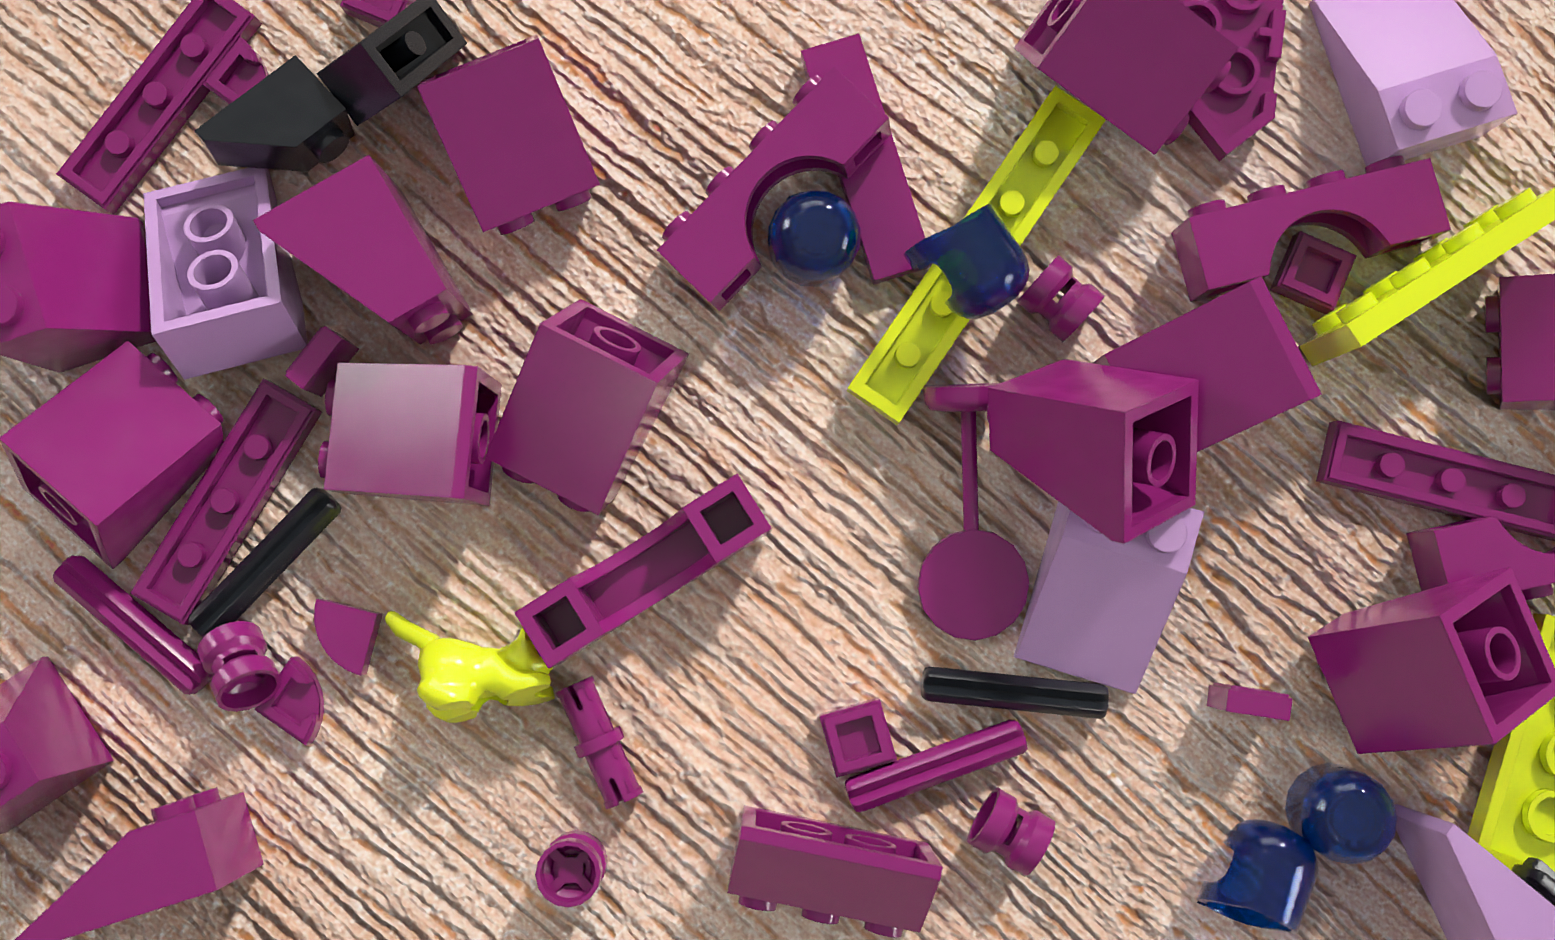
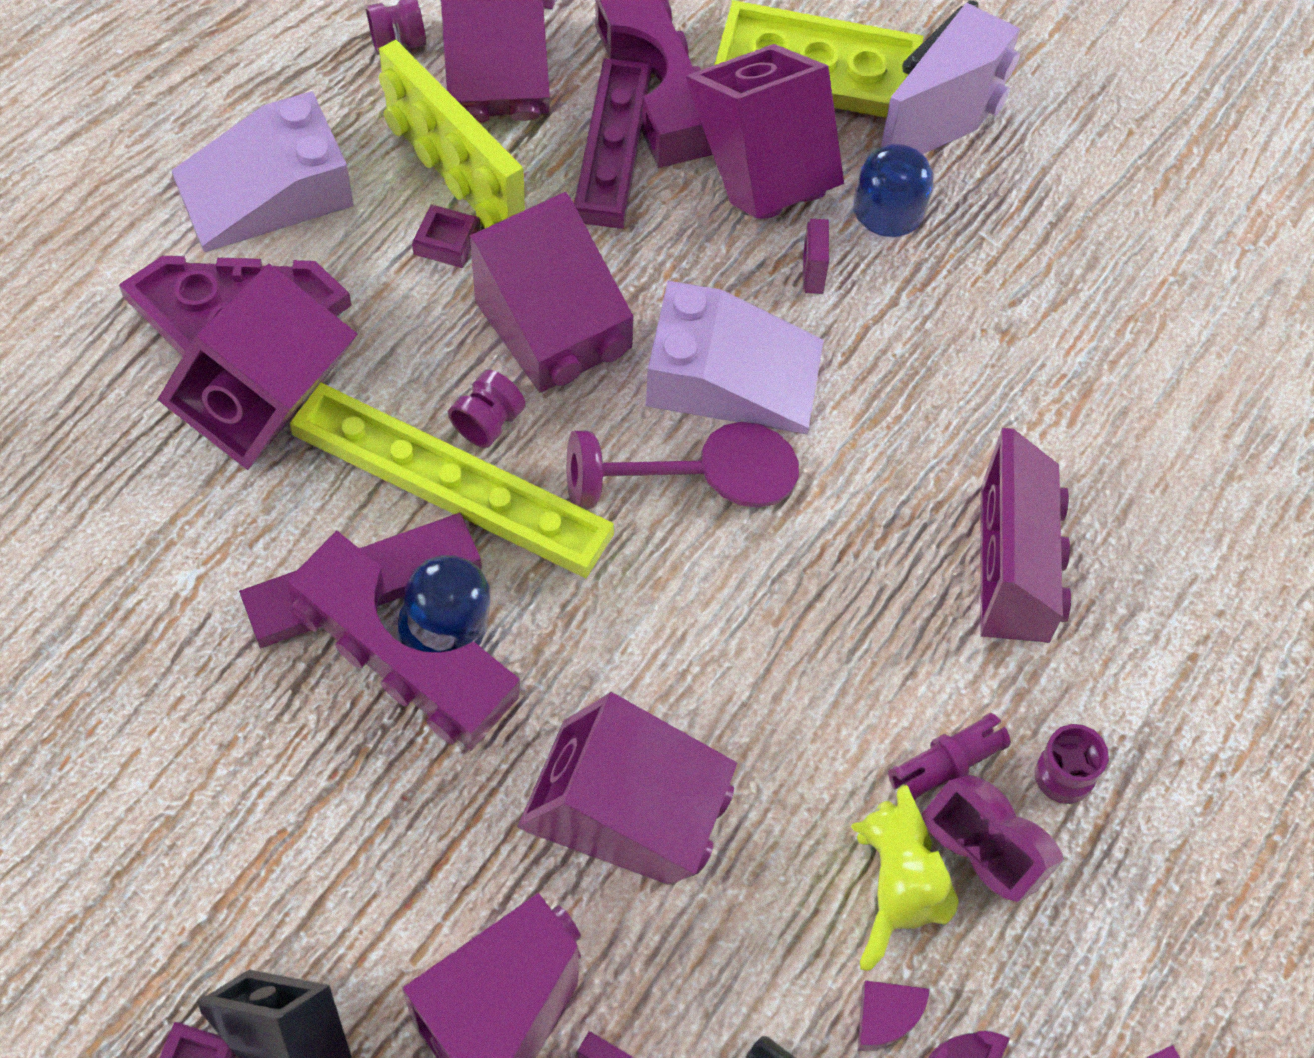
camera: 95 degrees left, 25 degrees down
(411, 432) = (680, 952): magenta slope -> none
(485, 771) = (1005, 850): none -> magenta brick
(510, 136) = (349, 893): magenta slope -> none
(643, 572) = (821, 765): magenta arch -> none
(857, 737) = (901, 545): magenta tile -> none
(935, 765) = (914, 481): magenta axle -> none
(979, 261) = (458, 452): clear blue helmet -> none
(1011, 832) = (957, 418): magenta wheel -> none
(1014, 692) = (839, 427): black axle -> none
(1101, 441) = (616, 351): magenta slope -> none
(1266, 879) = (958, 228): clear blue helmet -> none
(1376, 211) = (429, 281): magenta arch -> none

